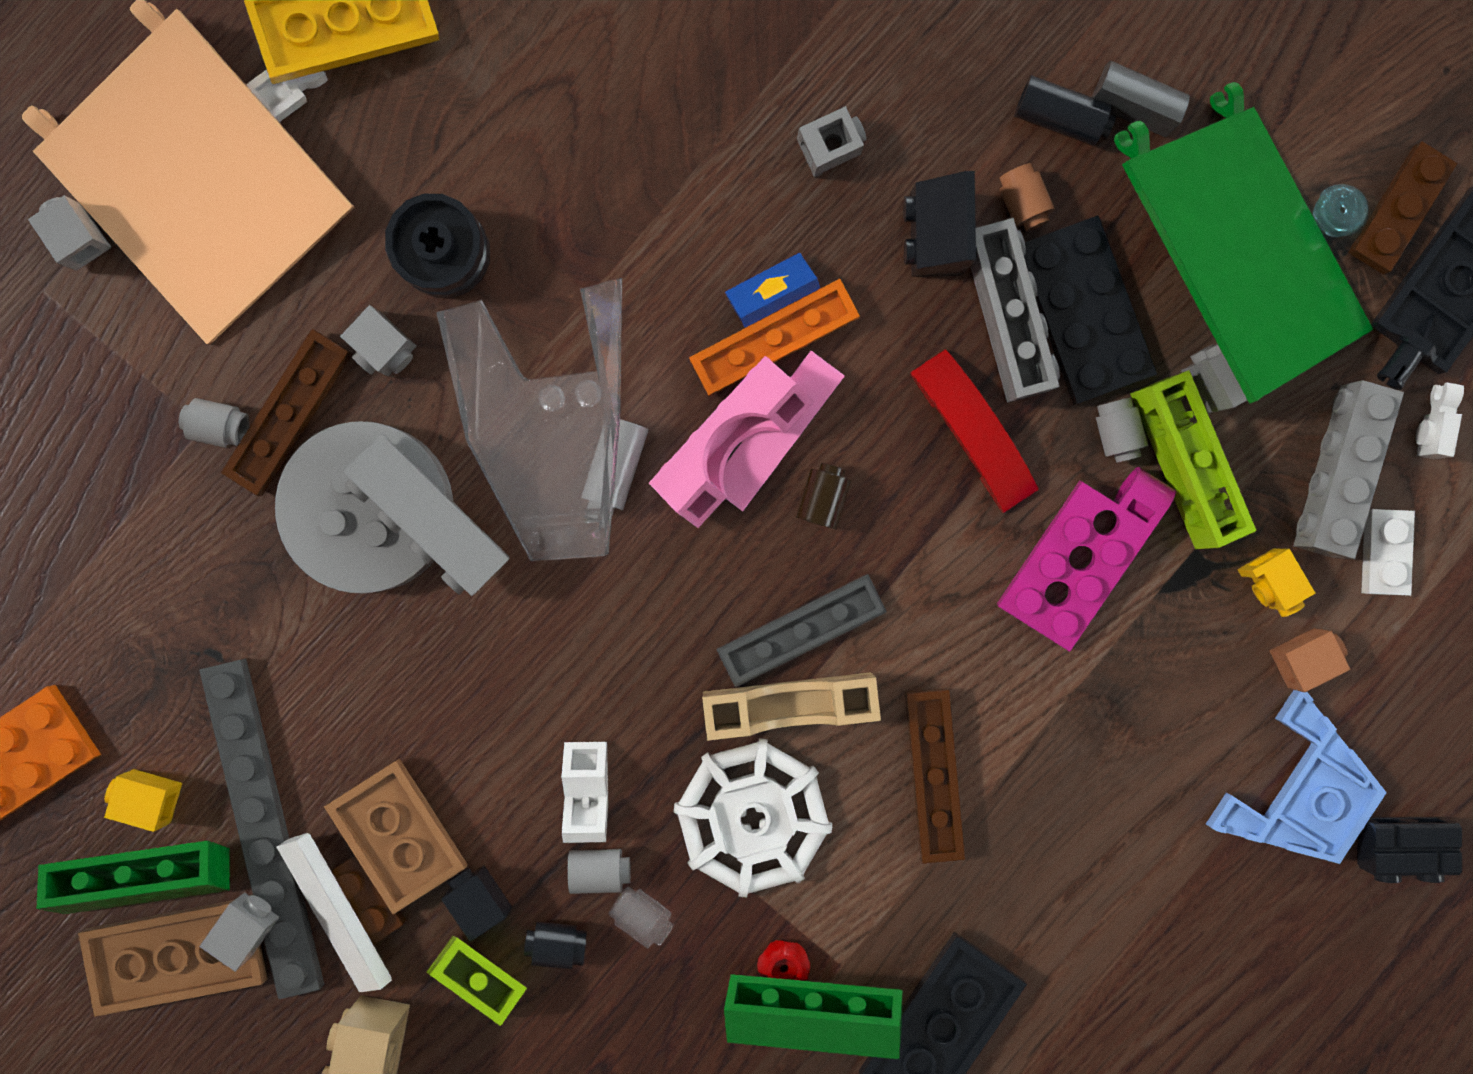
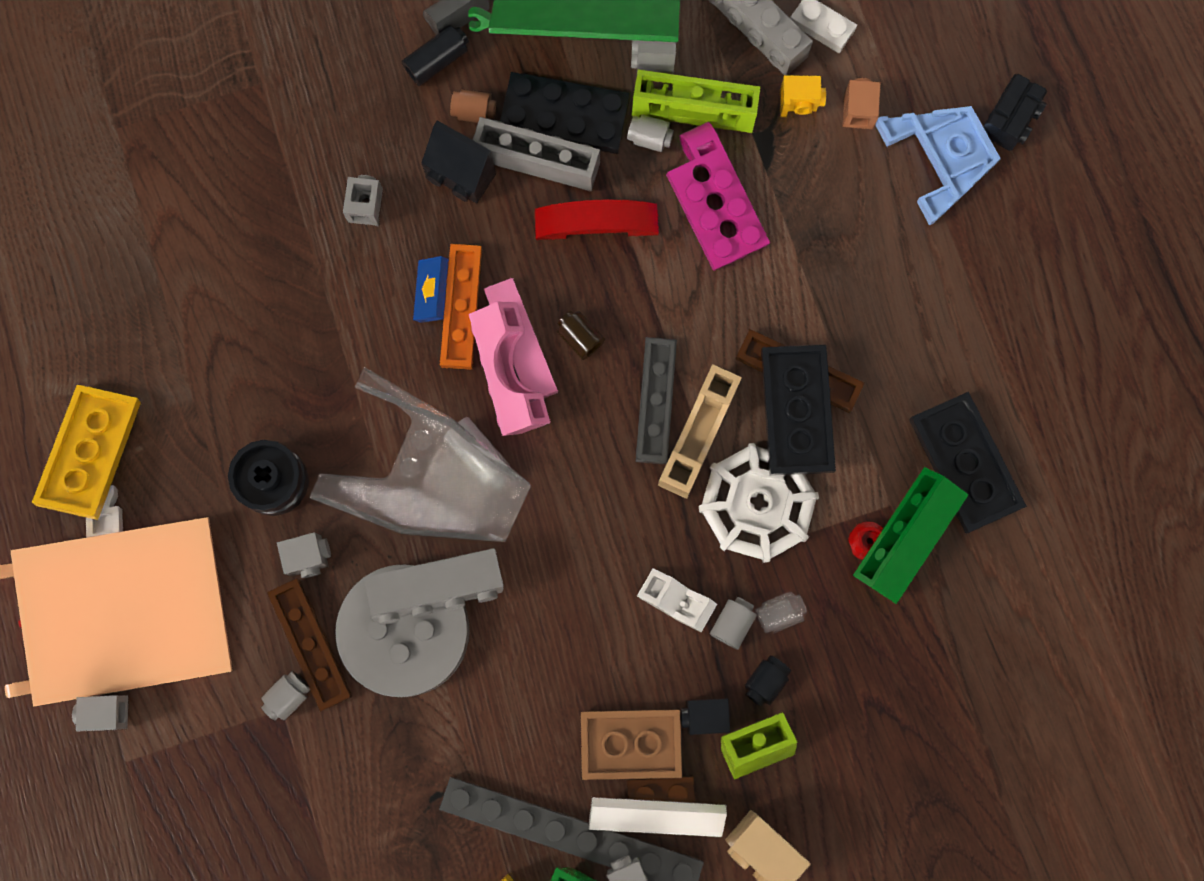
camera: 60 degrees left, 10 degrees down
(883, 805) = (798, 410): none -> black plate

